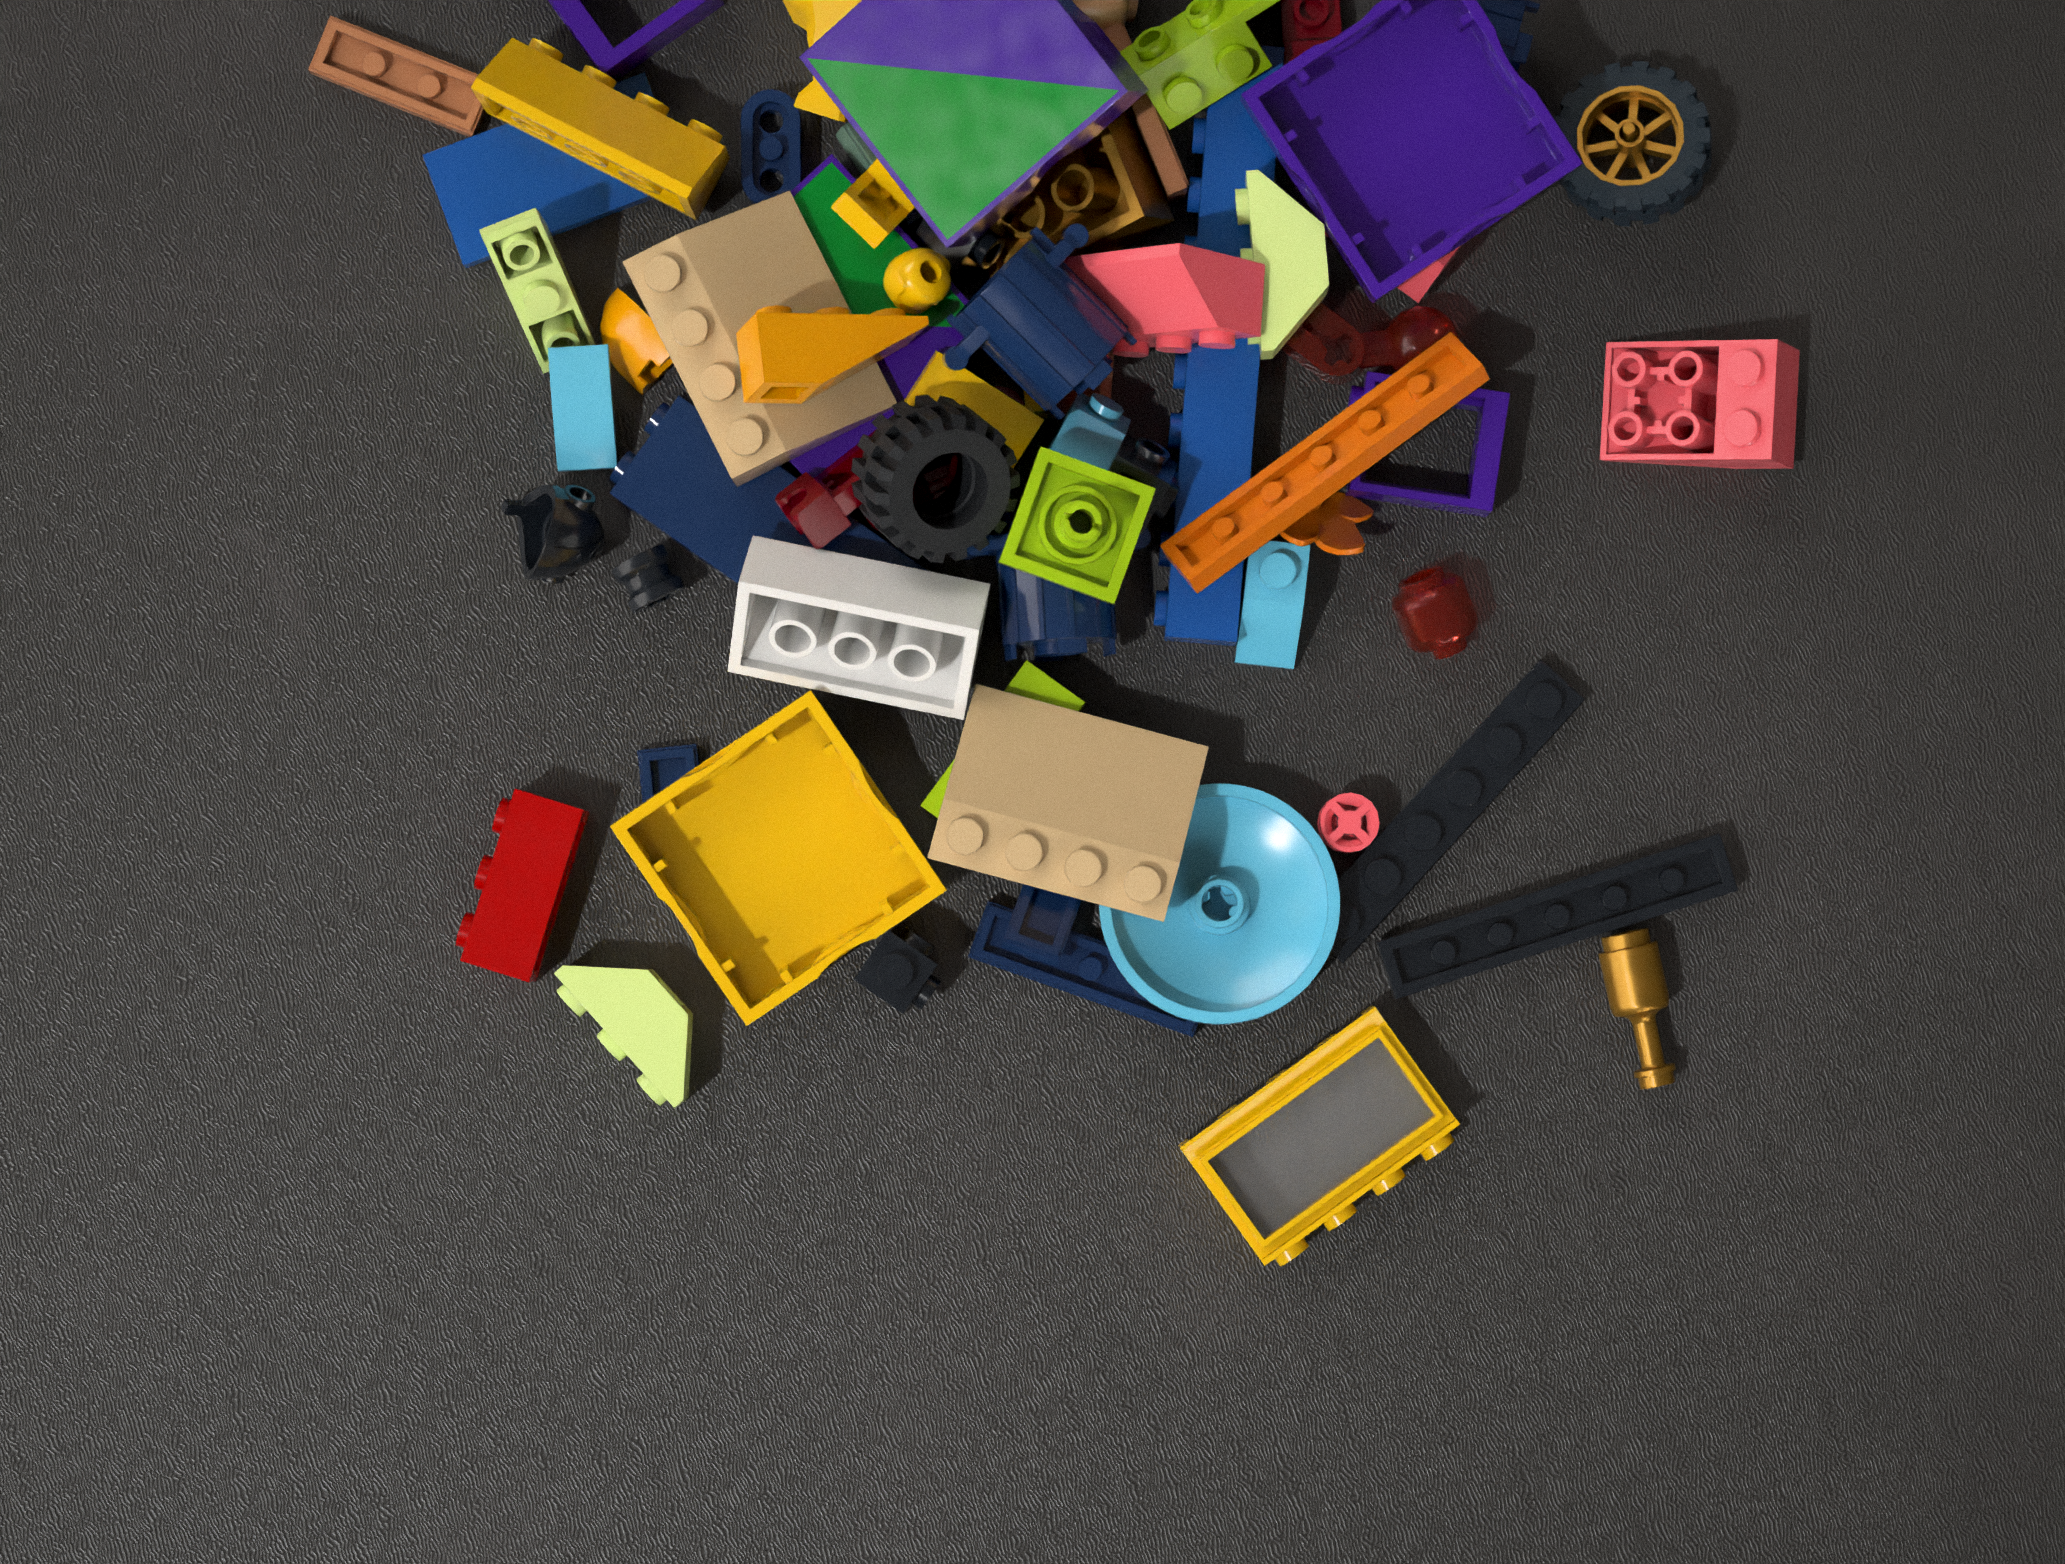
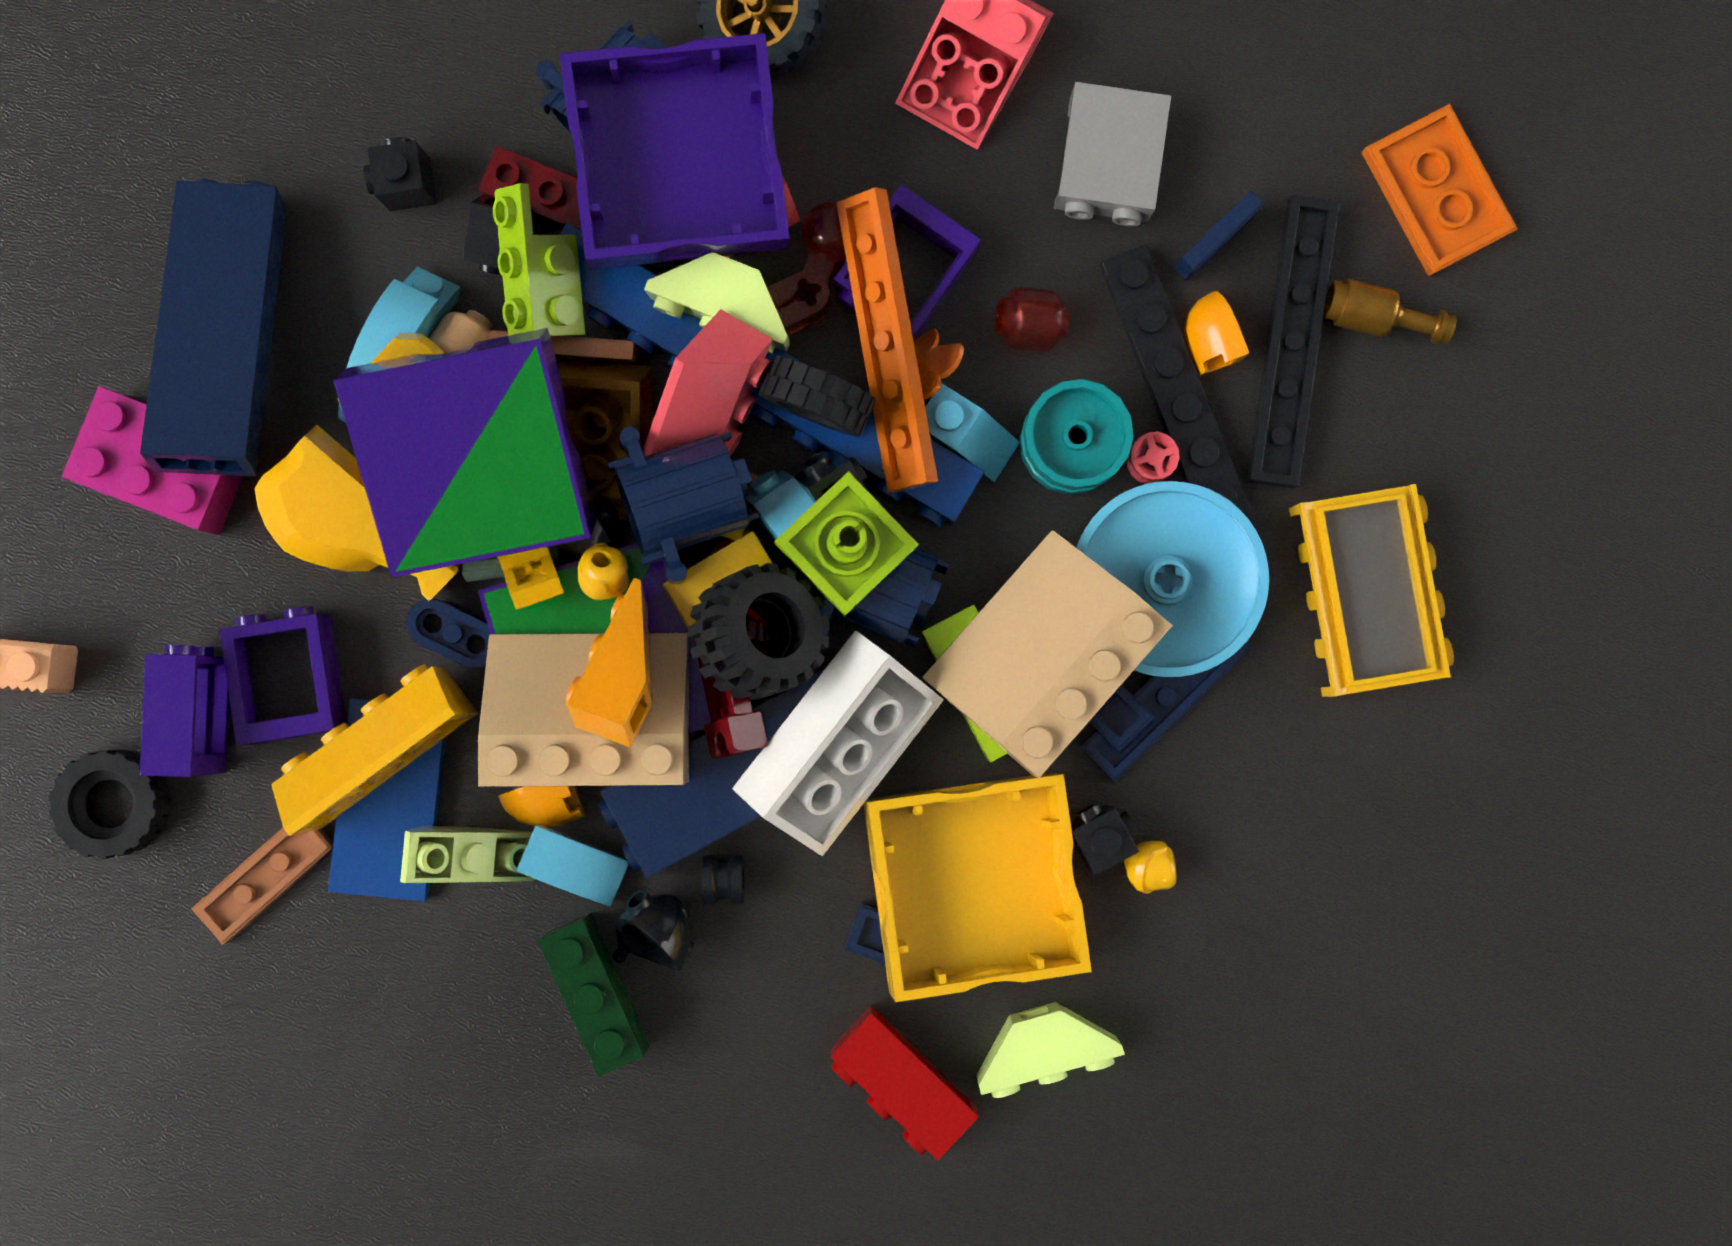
camera: 65 degrees left, 0 degrees up
(455, 500) = (594, 994): none -> dark green brick
(893, 1041) = (1151, 867): none -> yellow piece
(1222, 415) = (817, 396): none -> black tyre
(1290, 733) = (1097, 418): none -> teal wheel
(1518, 822) = (1213, 335): none -> light orange brick
(1632, 775) = (1219, 236): none -> dark blue tile
(1665, 610) = (1113, 153): none -> light grey panel
(1812, 999) = (1439, 190): none -> orange tile

